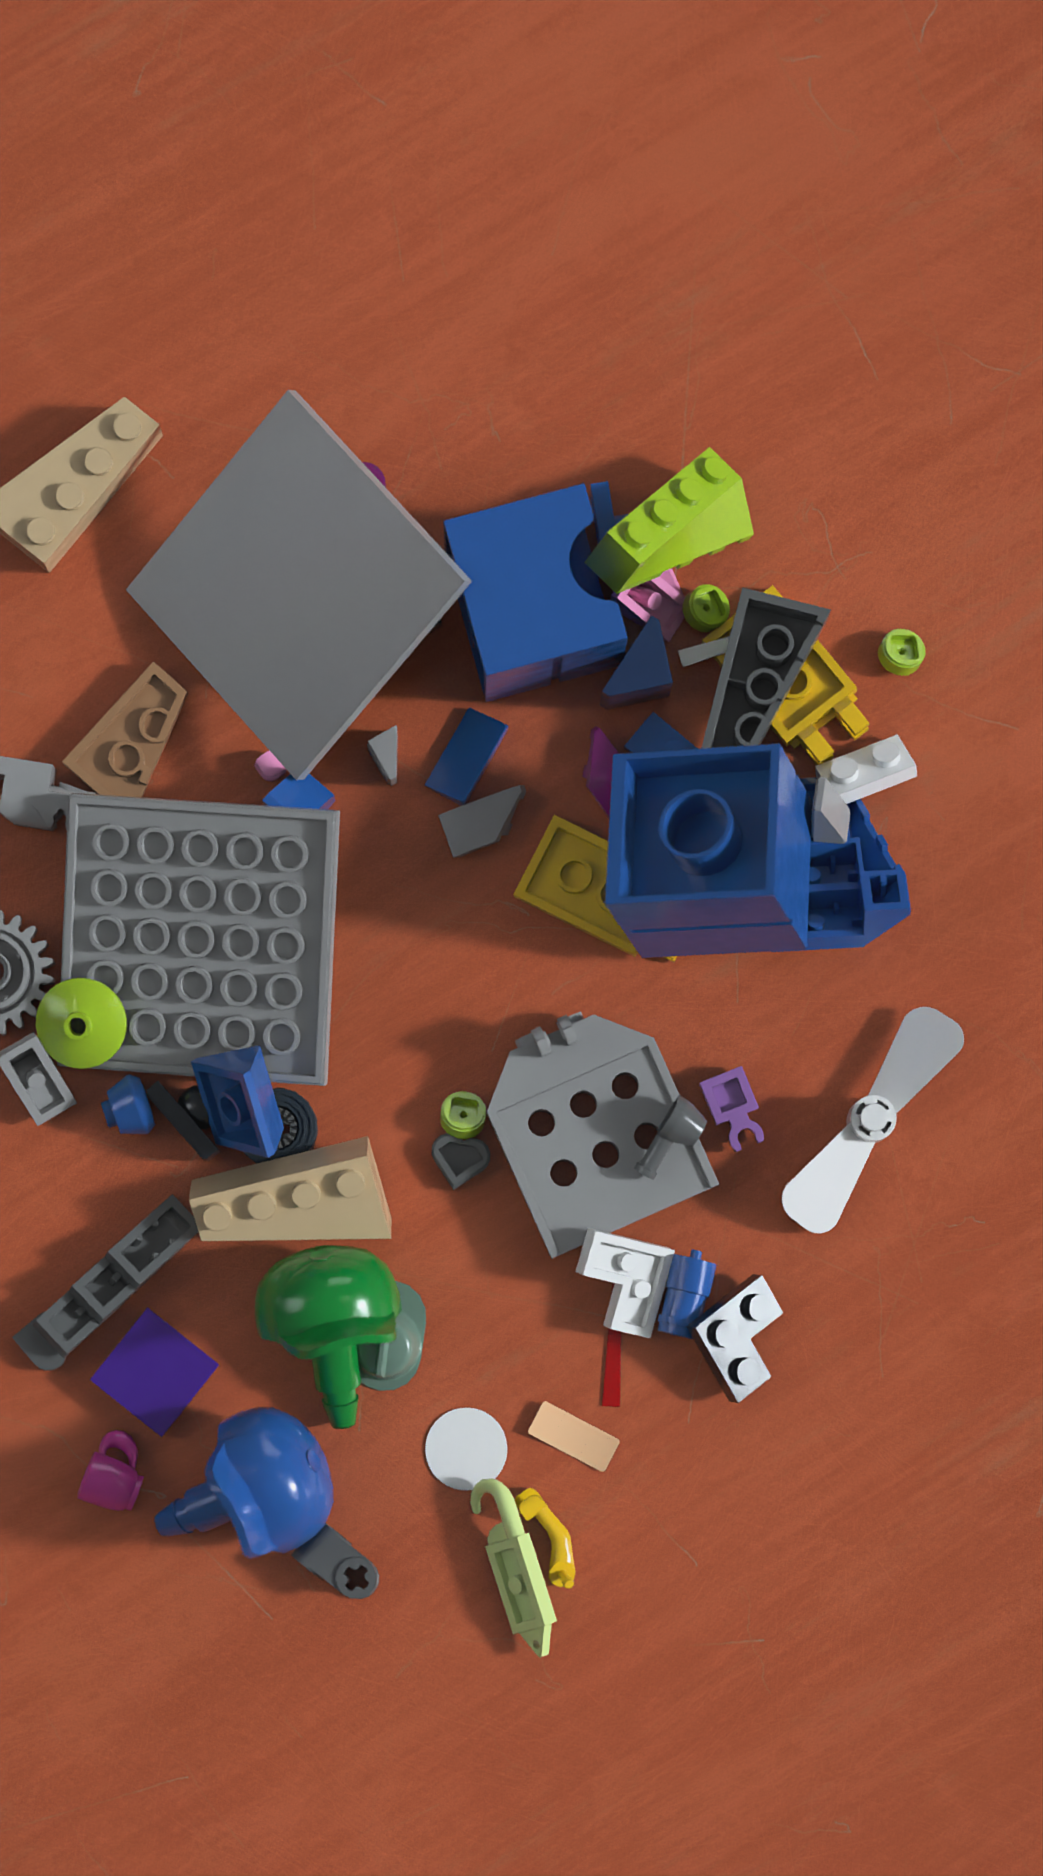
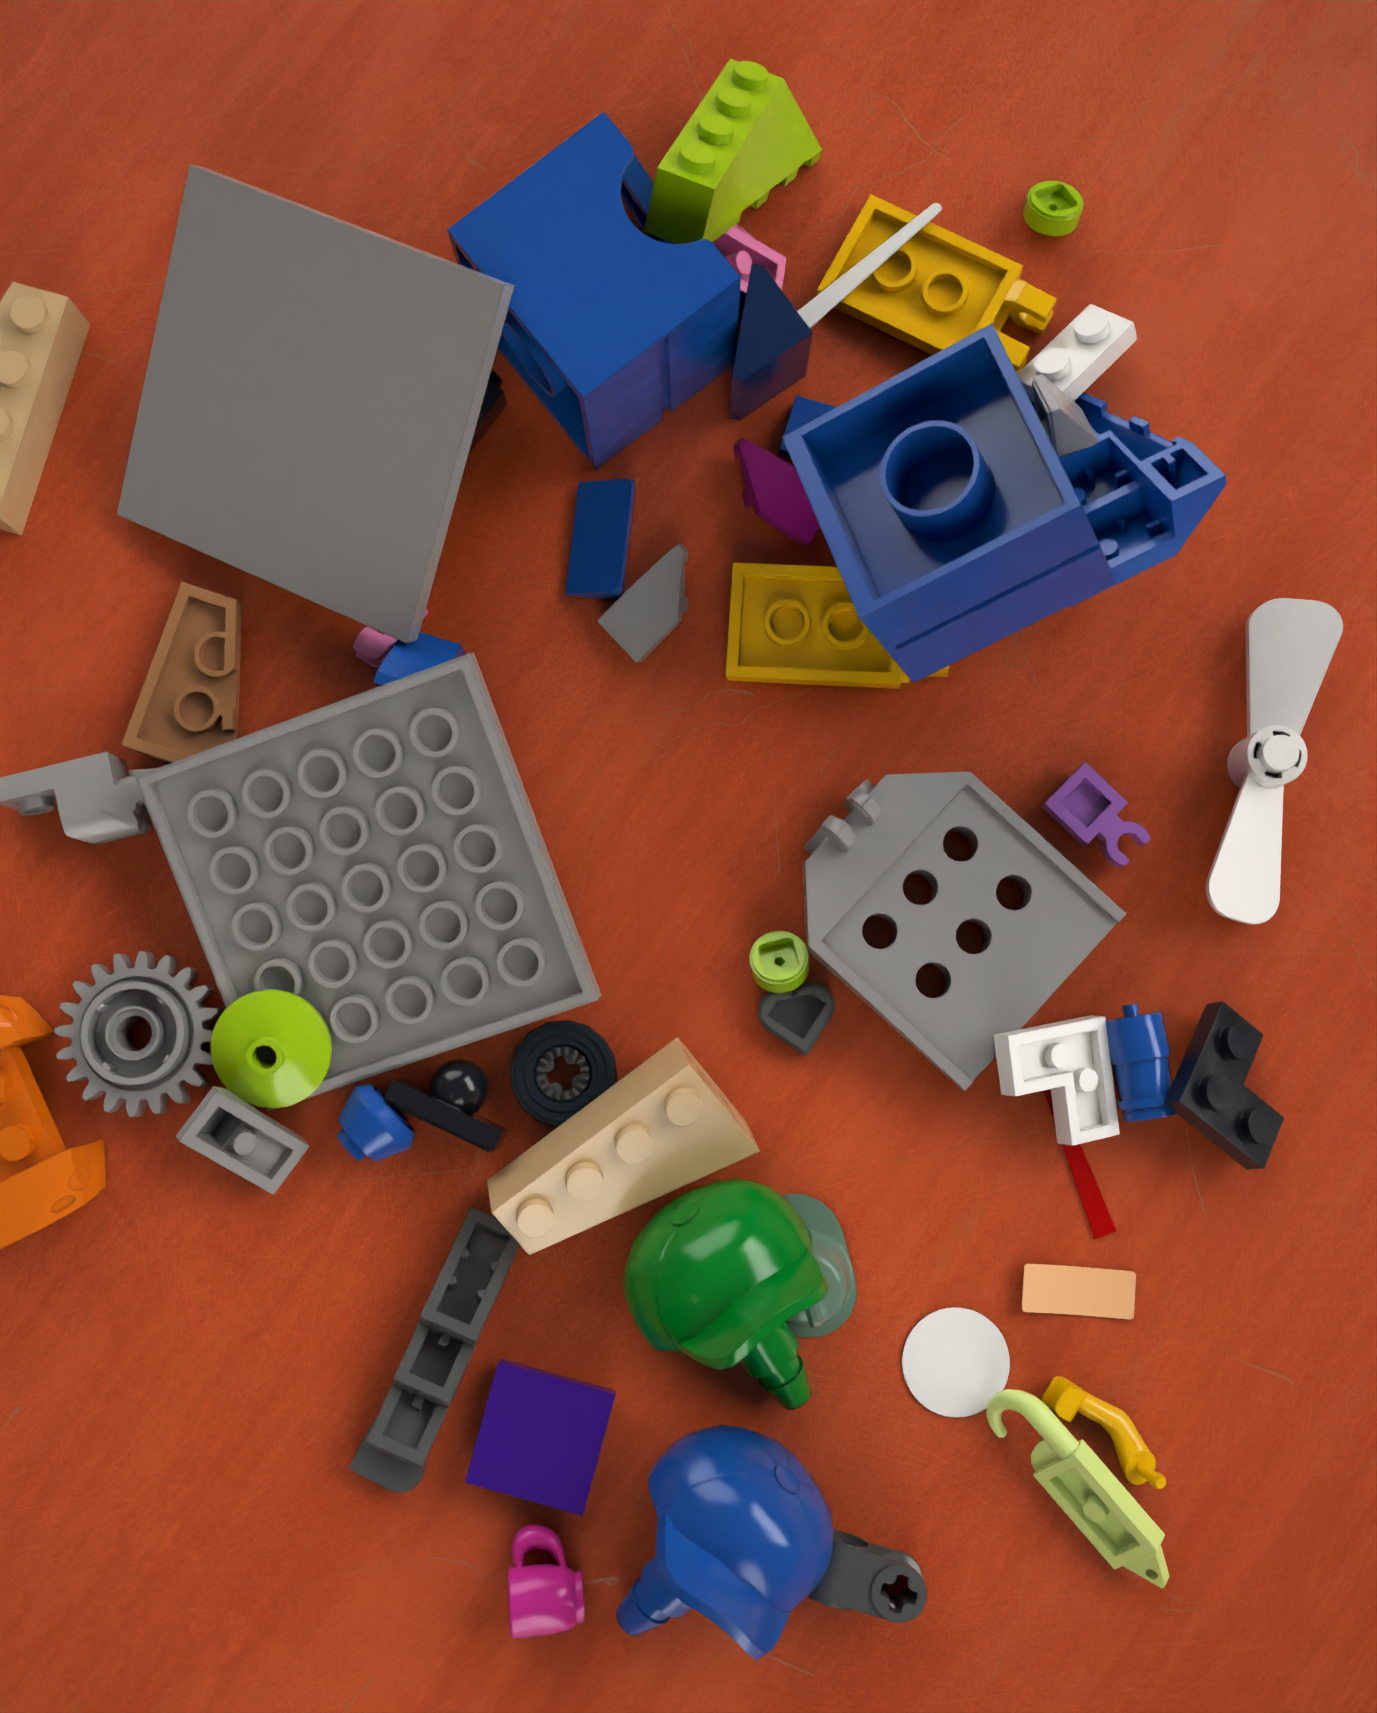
camera: 15 degrees left, 0 degrees up
(240, 1100) = (504, 1061): blue slope -> none
(384, 753) = (500, 574): light grey slope -> none
(680, 1125) = (1049, 862): dark grey bar -> none
(706, 608) = (805, 252): lime tile -> none
(760, 665) = (902, 266): dark grey wedge -> none

